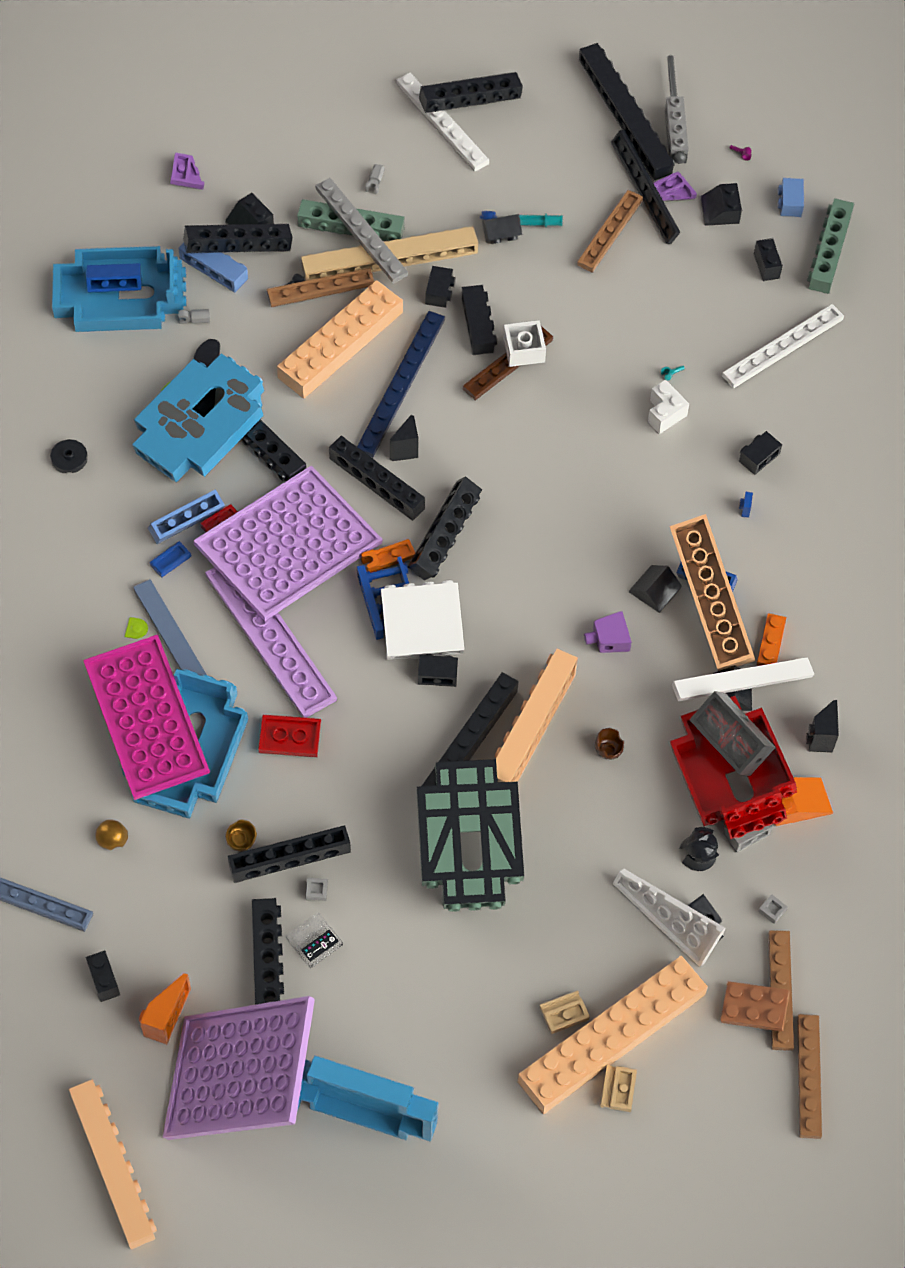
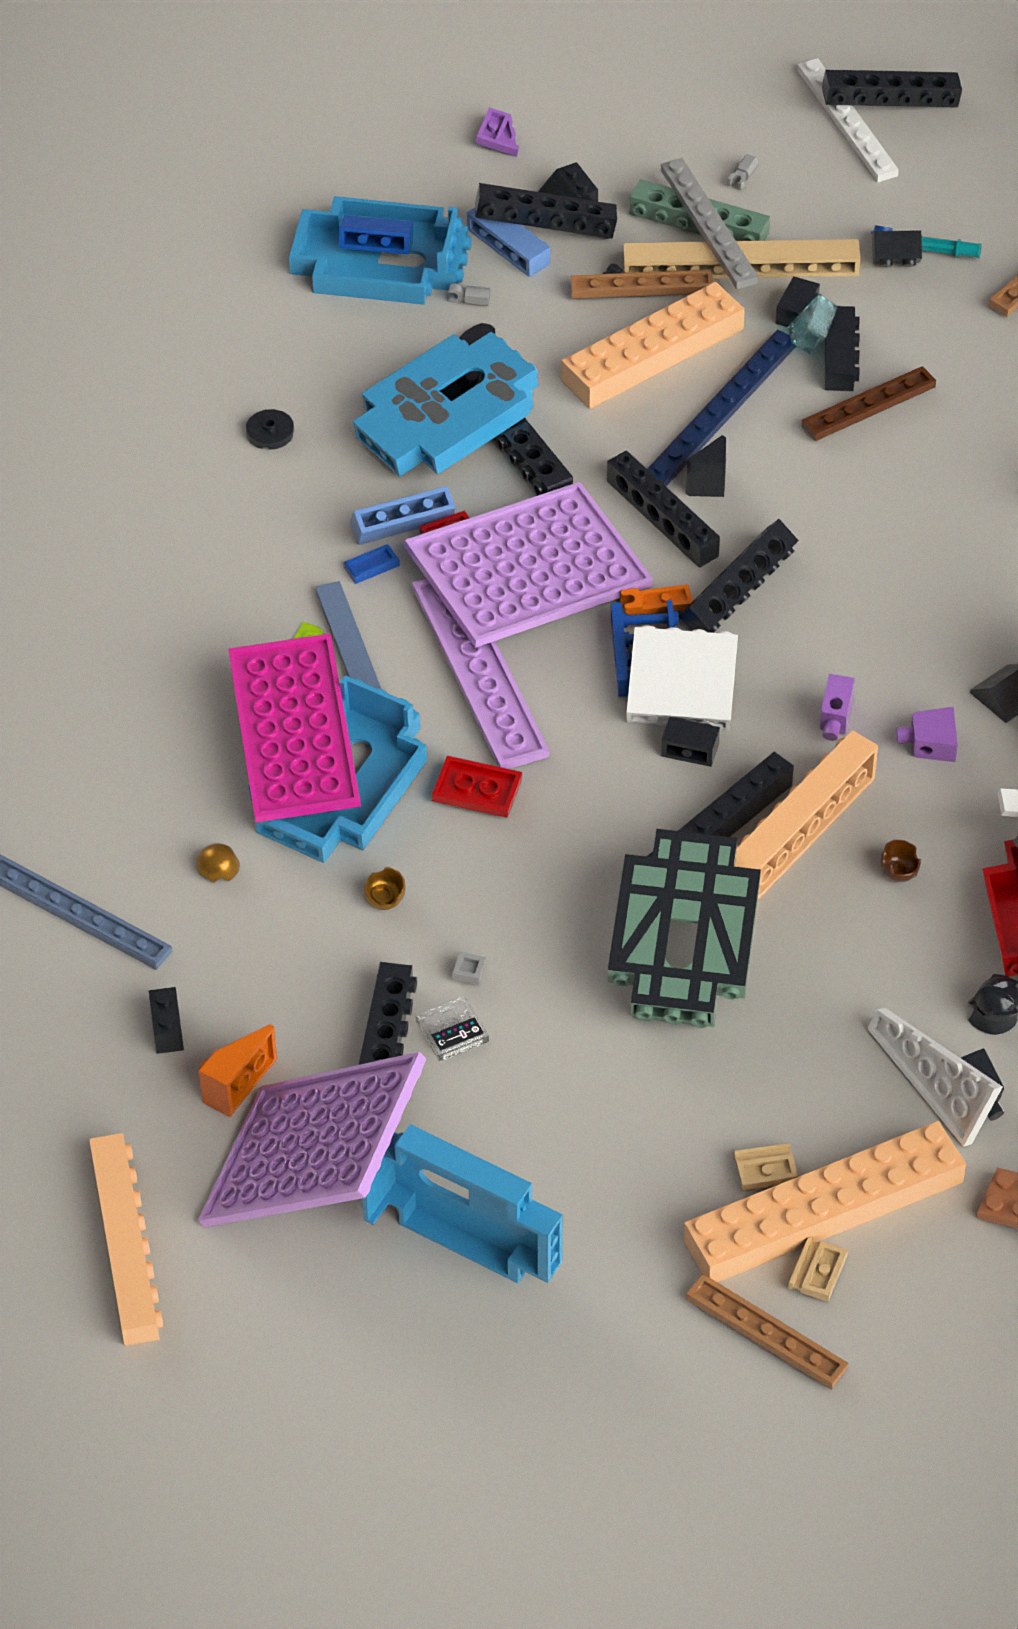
camera: 15 degrees right, 10 degrees down
(289, 854) = (442, 919): black brick -> none
(455, 305) = (812, 324): none -> clear light blue slope
(524, 343) = (894, 378): white brick -> none
(538, 625) = (834, 711): none -> medium lavender torso
(593, 1145) = (767, 1331): none -> medium nougat plate

